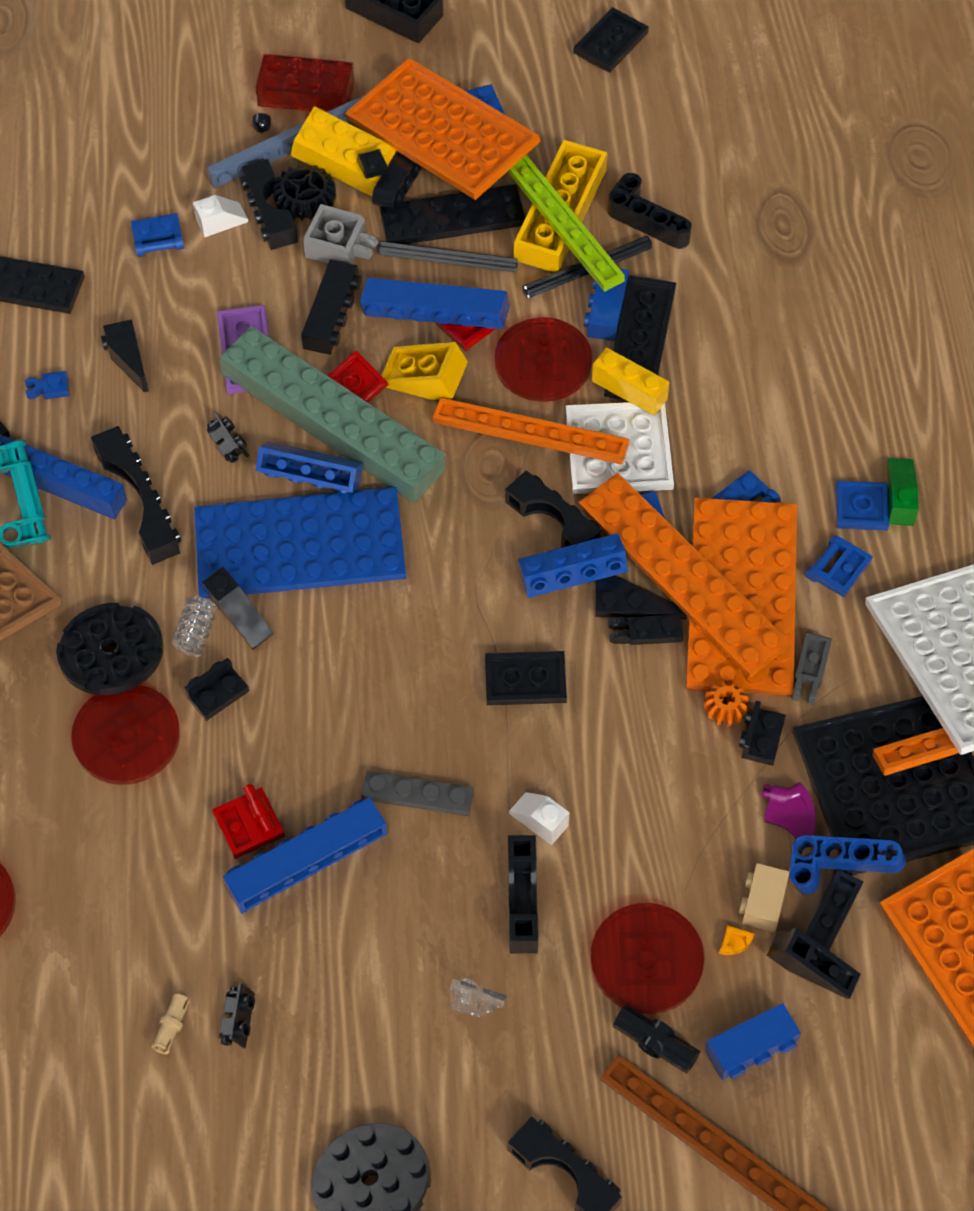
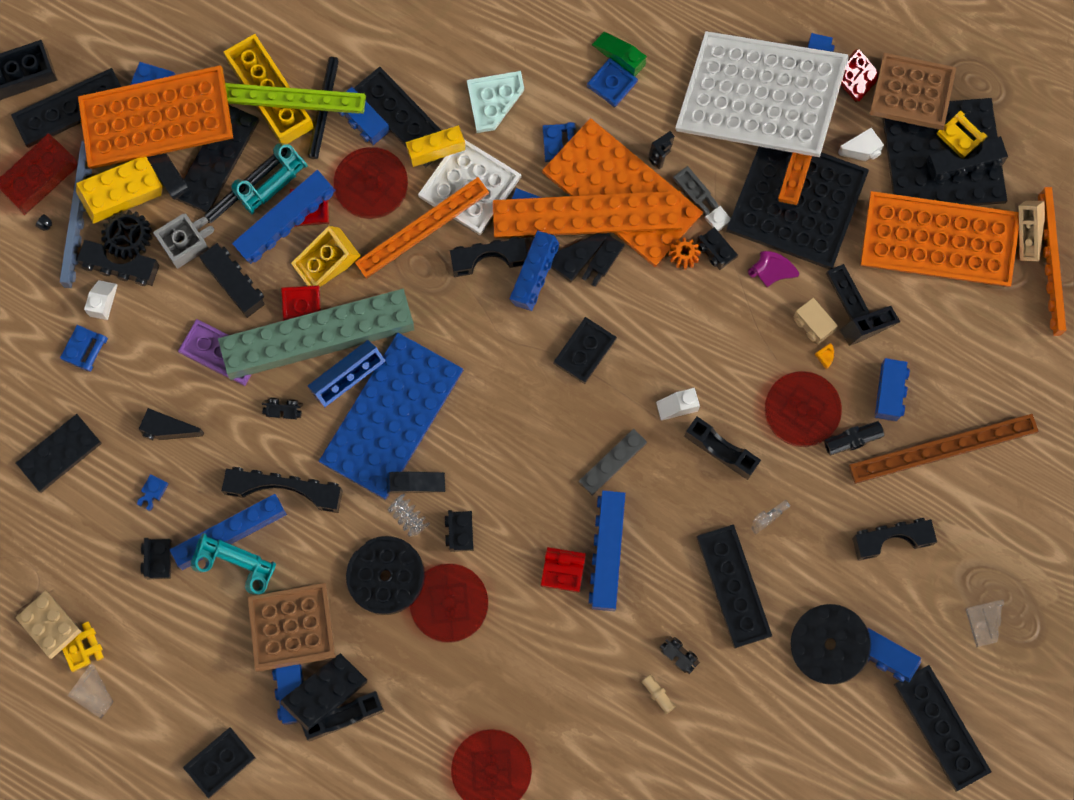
camera: 55 degrees left, 15 degrees up
(364, 1023) = (734, 586): none -> black plate
(372, 164) = (149, 179): black plate -> none
(378, 59) = (59, 110): none -> black plate
(466, 276) = (252, 197): none -> teal piece
(645, 216) = (316, 41): black beam -> none
(737, 405) = (493, 98): none -> light aqua plate
(799, 712) = (718, 218): none -> white plate
(825, 594) = (660, 149): none -> black bracket
(846, 569) = (648, 122): blue plate -> none
(847, 860) = (829, 261): blue beam -> none

